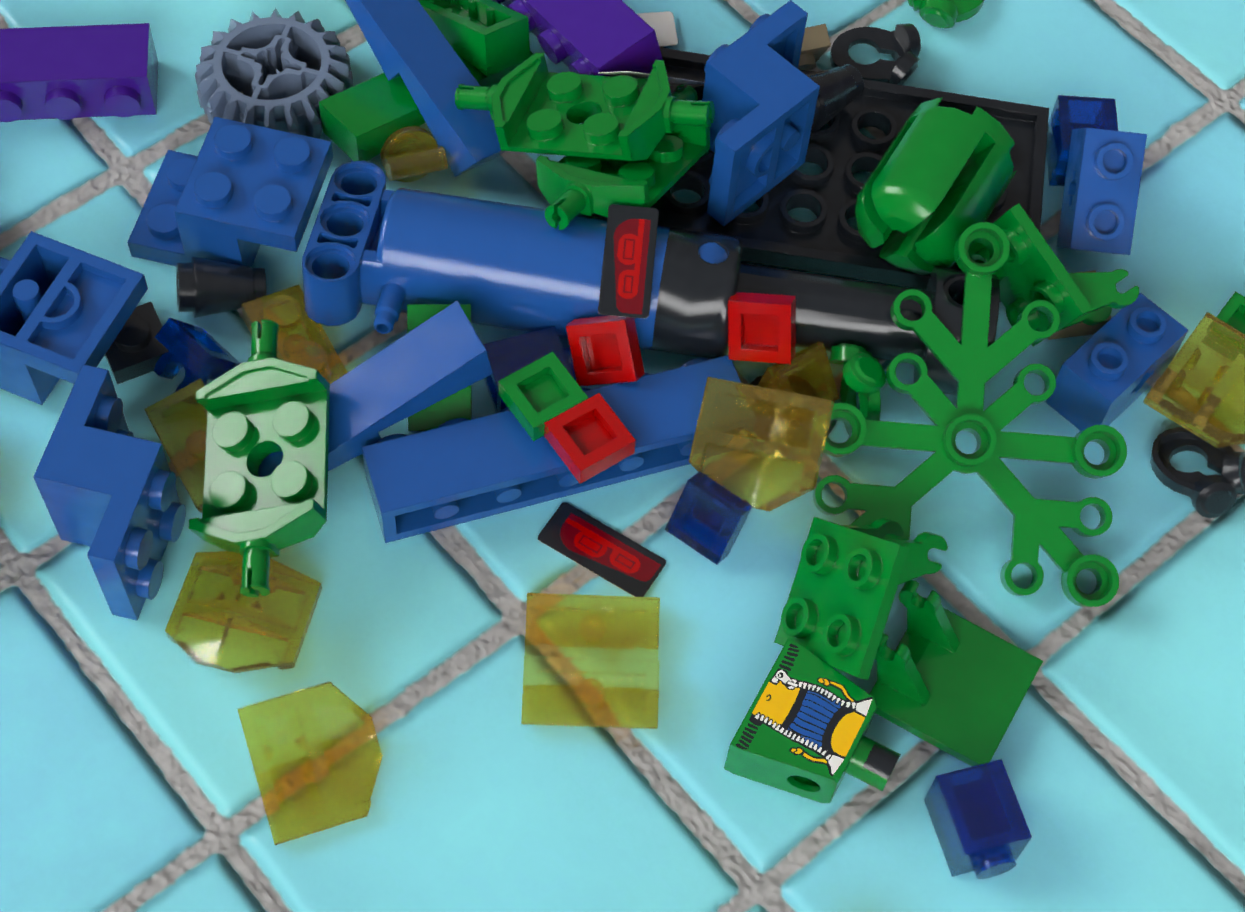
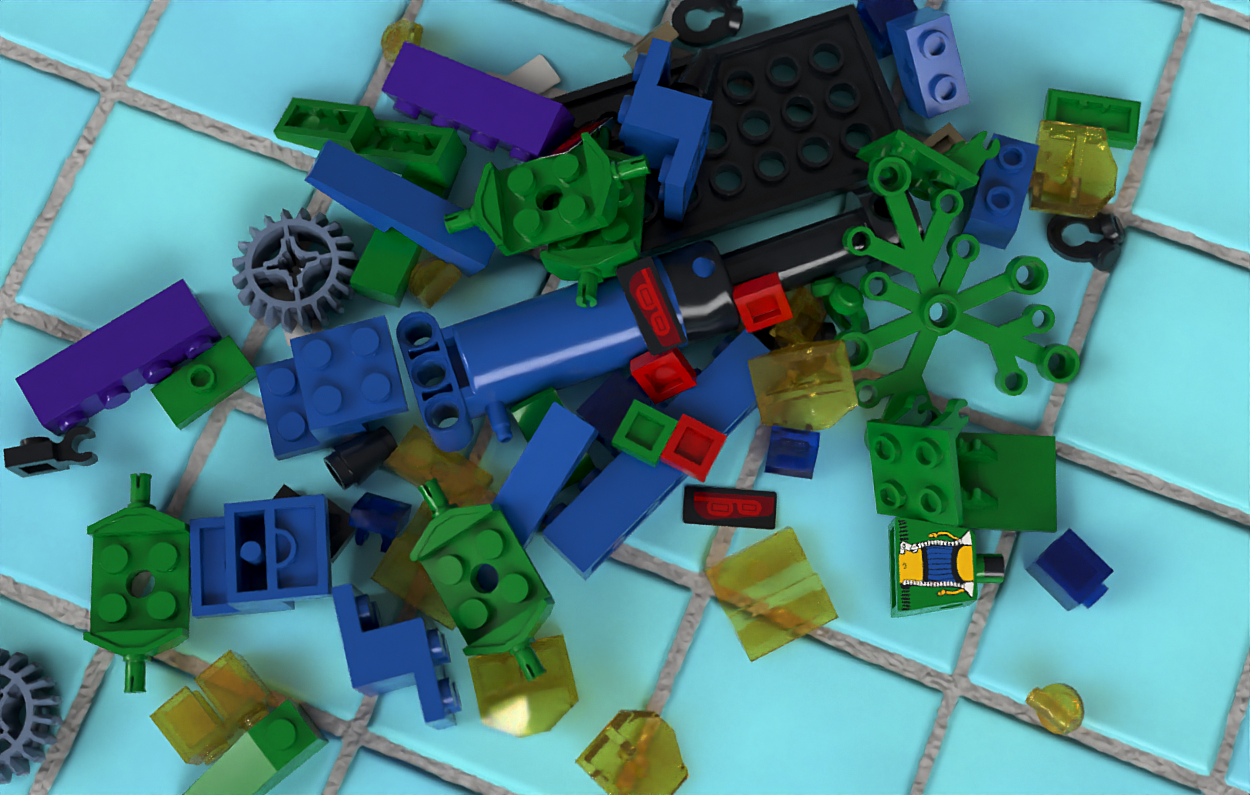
camera: 20 degrees left, 15 degrees up
(105, 142) = (204, 382): none -> green plate
(934, 185) = (821, 128): green cylinder -> none

